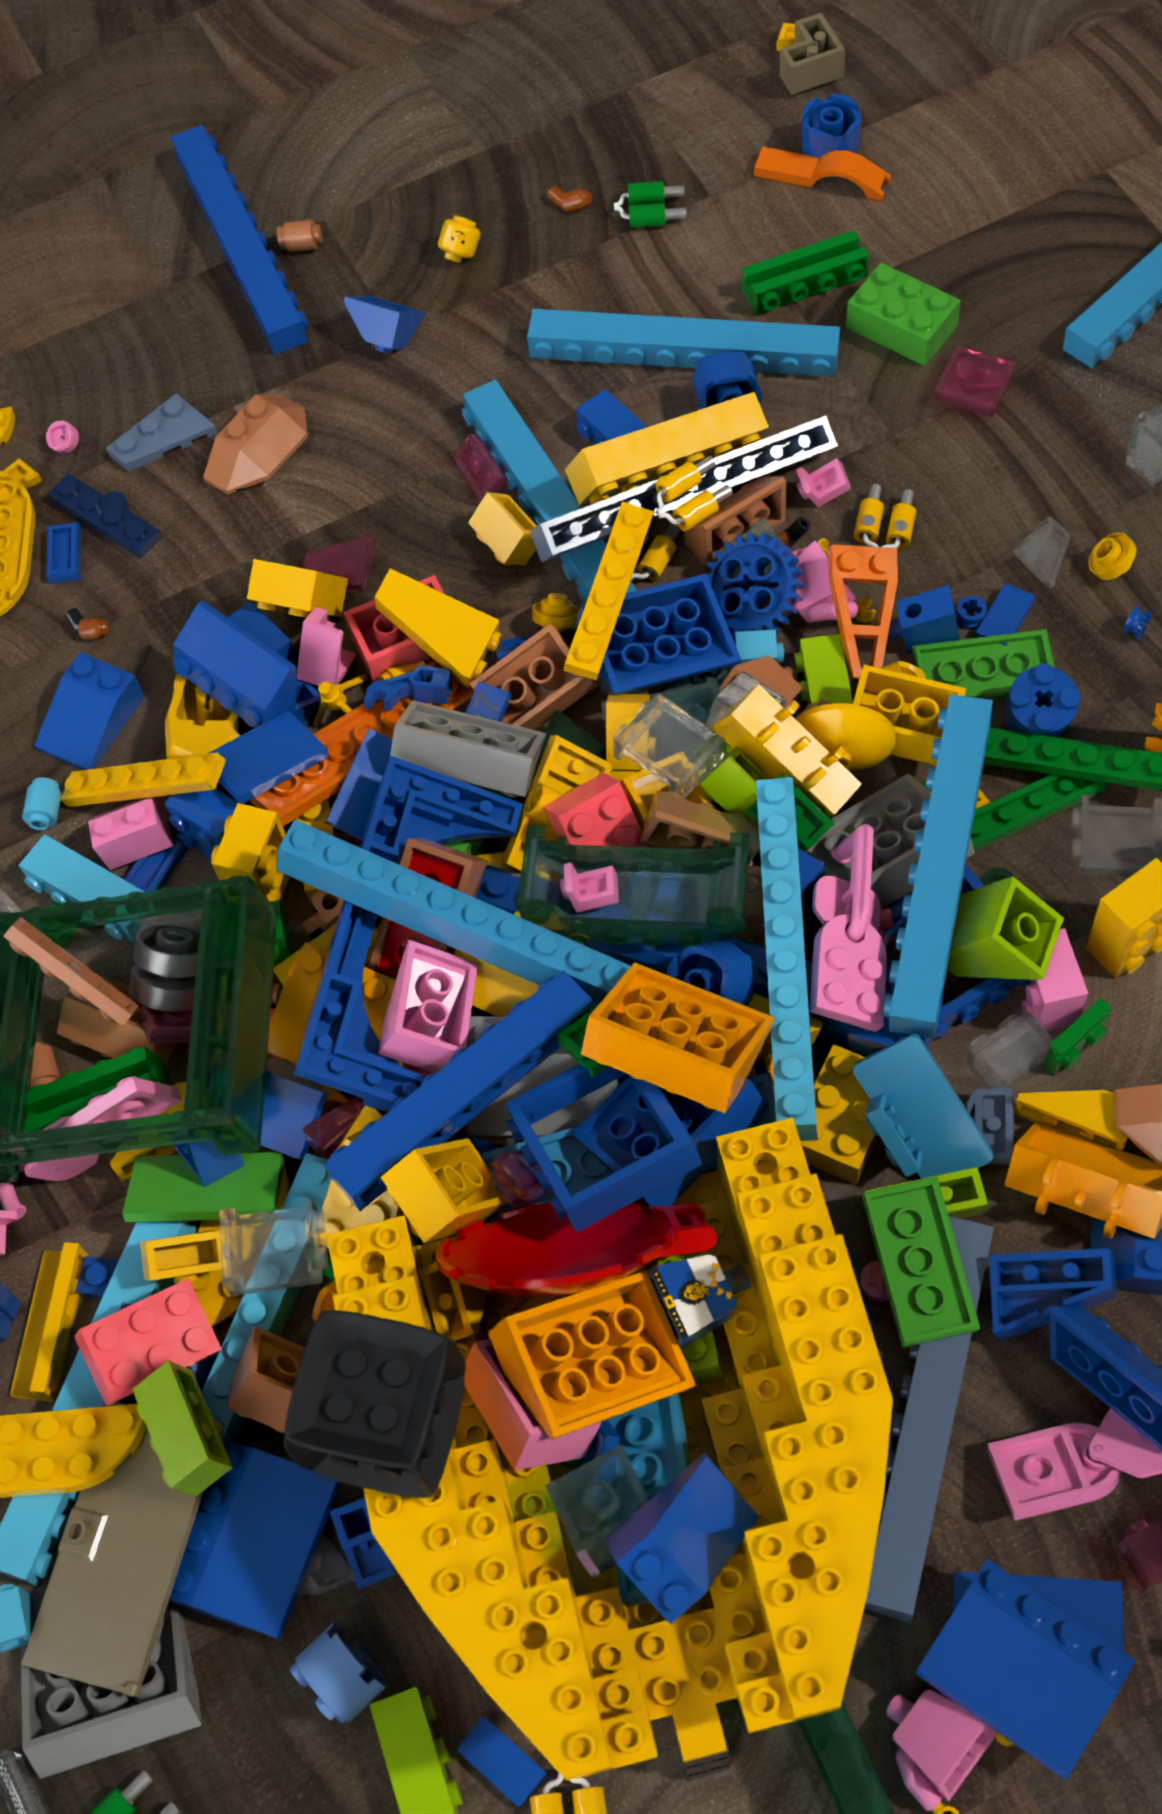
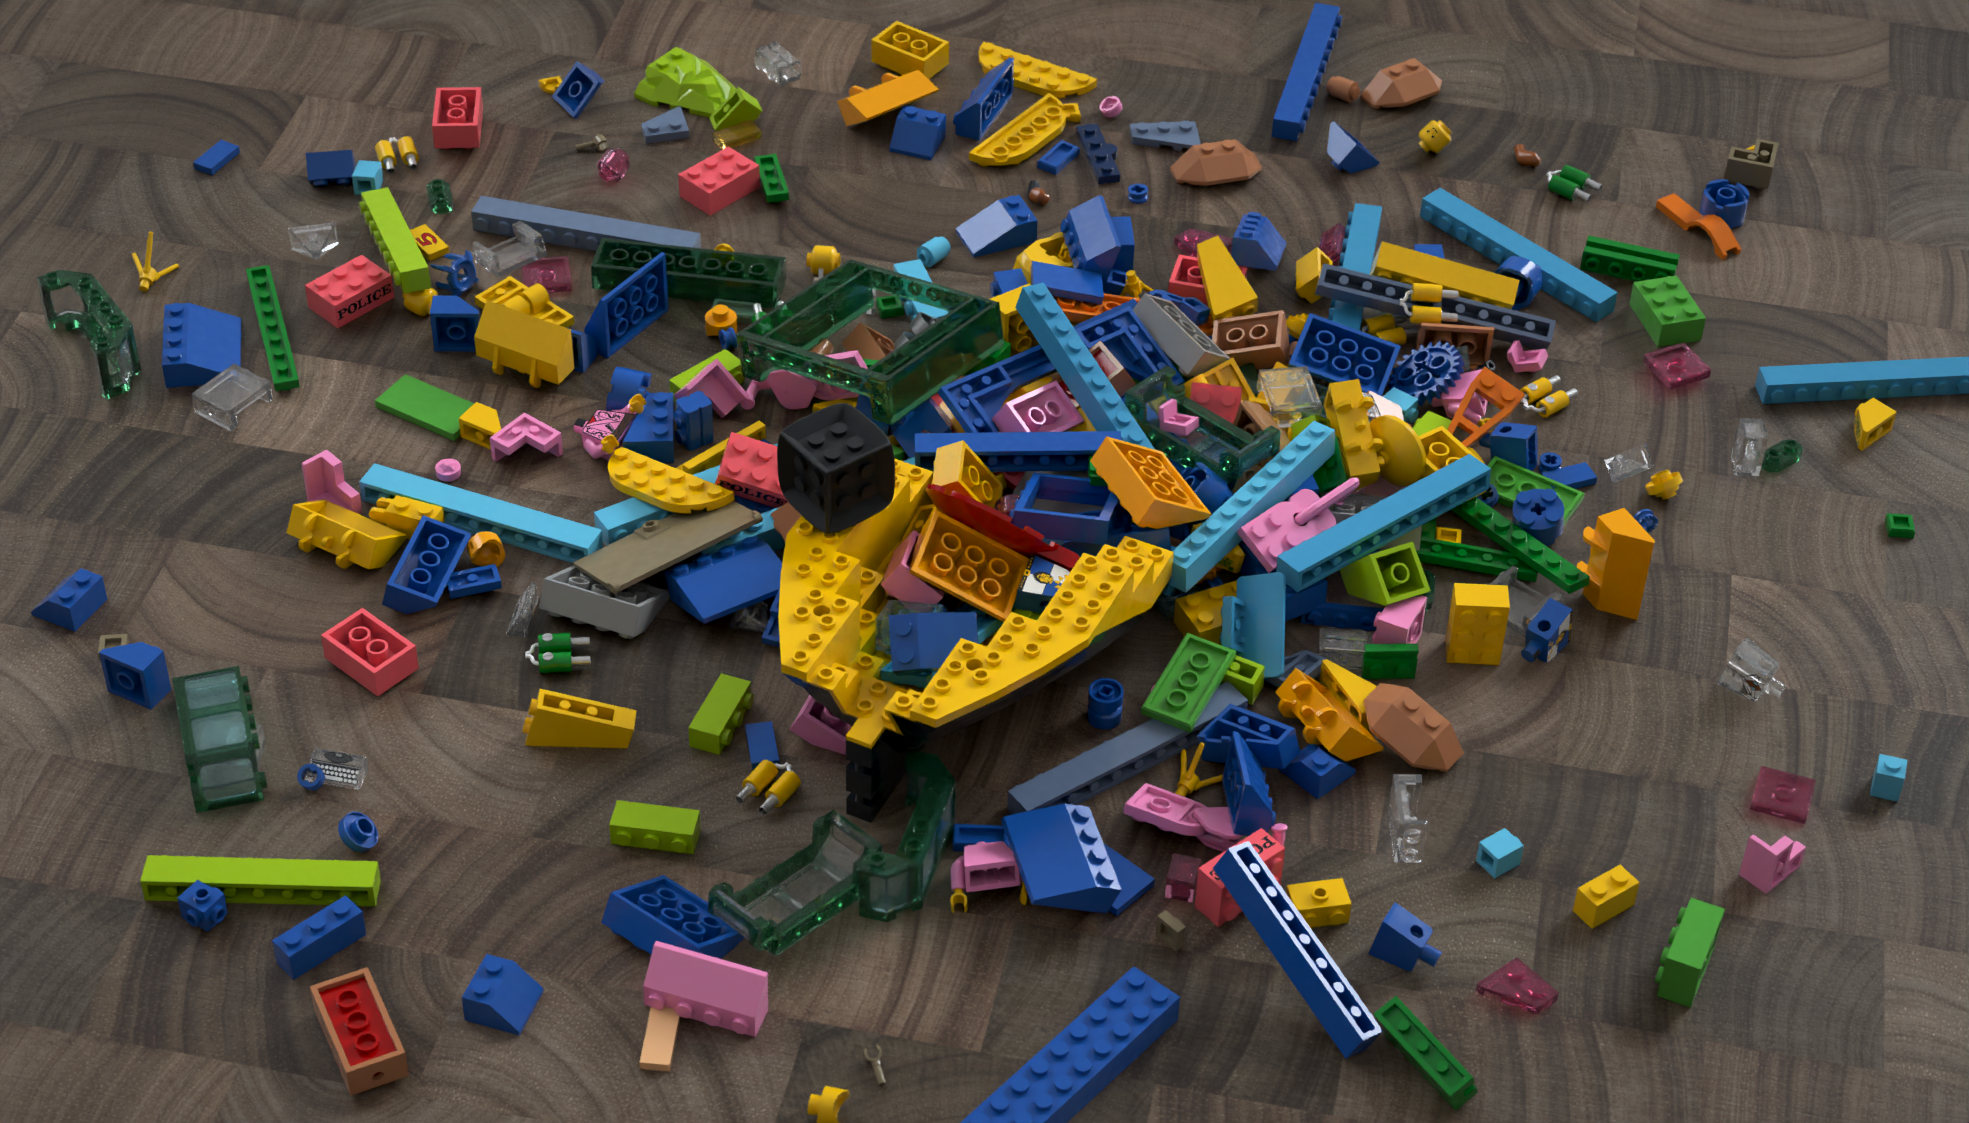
camera: 30 degrees right, 20 degrees down
(60, 964) = (869, 296): nougat plate -> none
(131, 831) = (967, 279): bright pink slope -> none
(143, 780) = (993, 259): yellow plate -> none
(181, 1429) = (740, 502): lime brick -> none
(200, 534) = (1138, 193): none -> blue bush
(295, 589) = (1162, 228): yellow brick -> none
(321, 651) = (1150, 262): bright pink panel -> none
(339, 1674) = (718, 654): medium blue brick -> none
(360, 190) = (1401, 85): none -> nougat wedge
(412, 532) = (1257, 243): none -> blue slope
(489, 702) = (1217, 331): blue tile -> none
(608, 591) = (1332, 315): yellow plate -> none
(878, 1683) = (971, 834): none -> blue tile
(1023, 1396) = (1189, 780): none -> yellow plant

